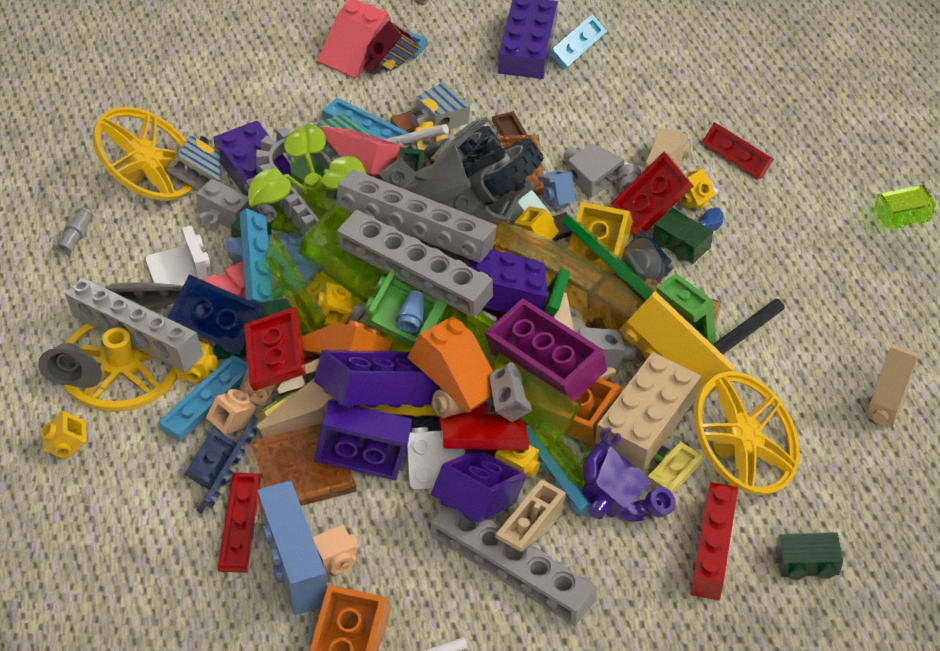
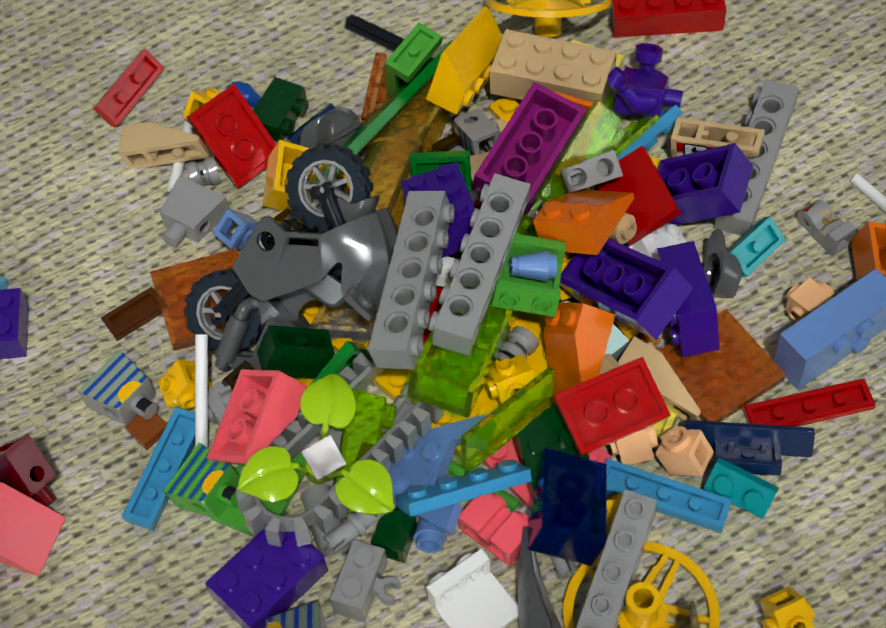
camera: 100 degrees left, 10 degrees up
(174, 449) = (742, 487): none -> teal plate
(308, 174) = (323, 457): none -> tile
(393, 487) = (721, 267): none -> dark grey piece
(412, 528) = (757, 245): none -> teal plate
(413, 591) = (826, 227): none -> light grey leg

